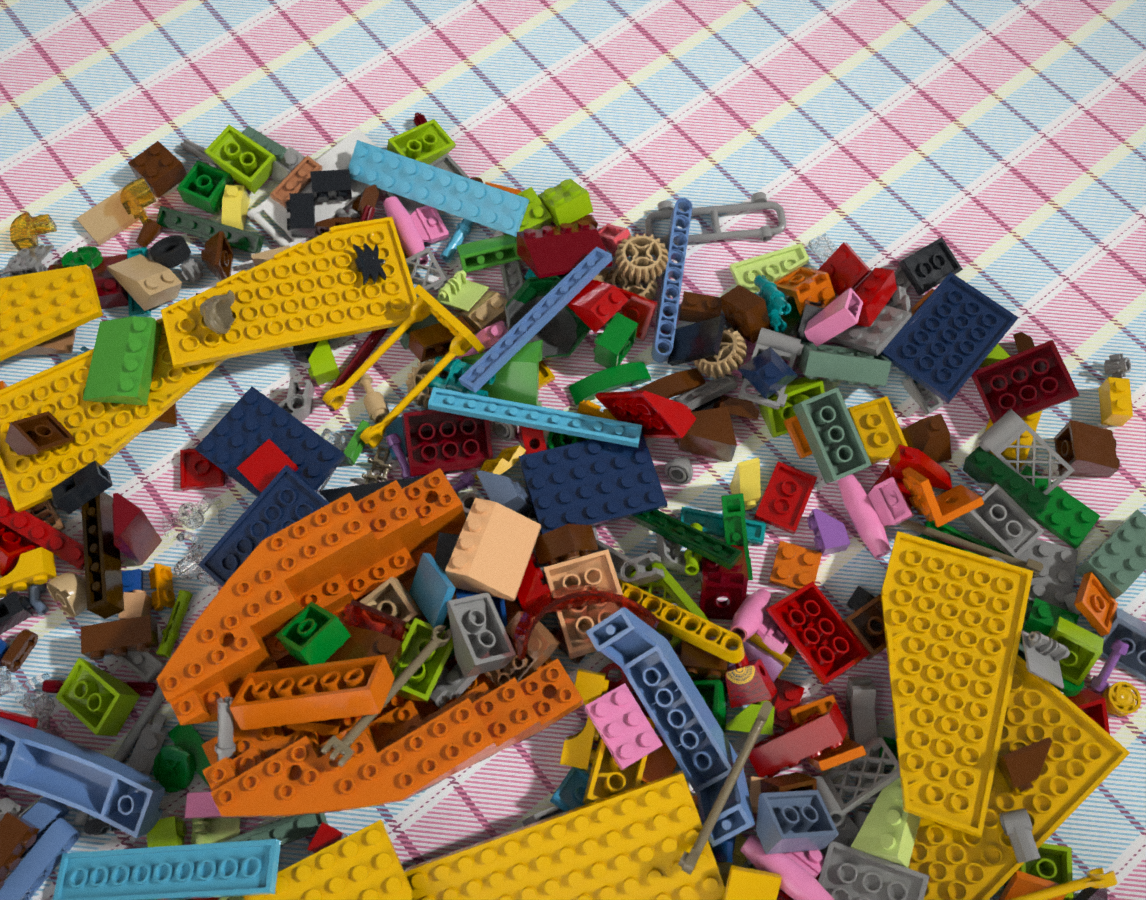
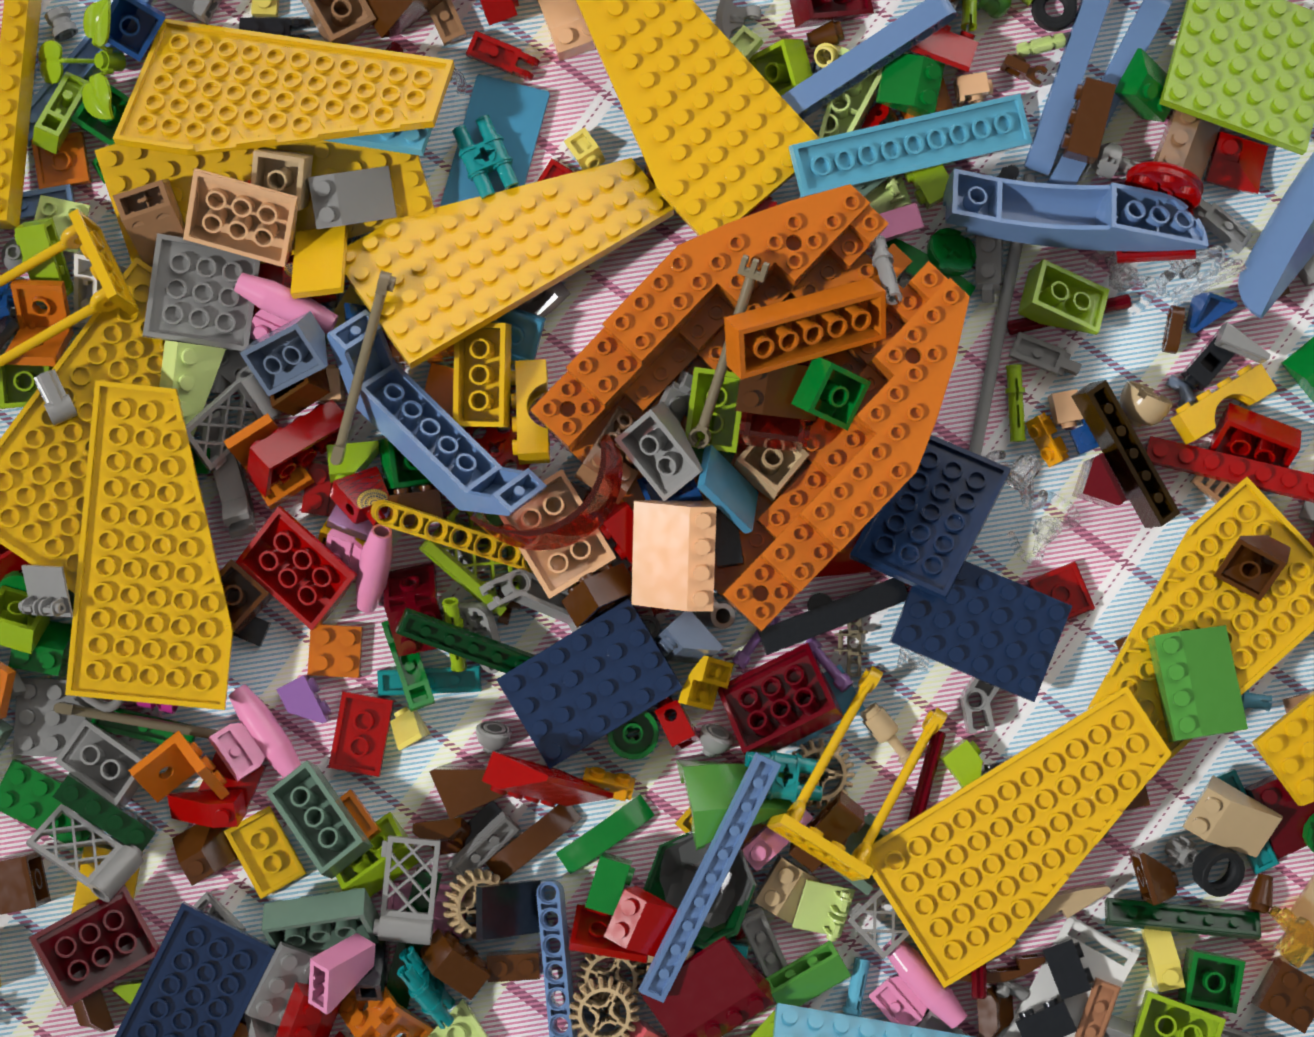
camera: 170 degrees right, 20 degrees up
(81, 487) = (1180, 520): black brick -> none
(119, 637) = (1064, 366): reddish brown brick -> none
(217, 312) = (1098, 766): dark tan hair -> none
(265, 464) = (973, 598): red tile -> none
(355, 445) = (886, 667): bright green tile -> none
(368, 263) = (947, 905): black piece -> none
(535, 417) = (677, 741): medium azure plate -> none
(623, 726) = (485, 406): bright pink plate -> none
(767, 372) = (410, 879): dark blue slope -> none
(1024, 765) = (56, 467): reddish brown slope -> none

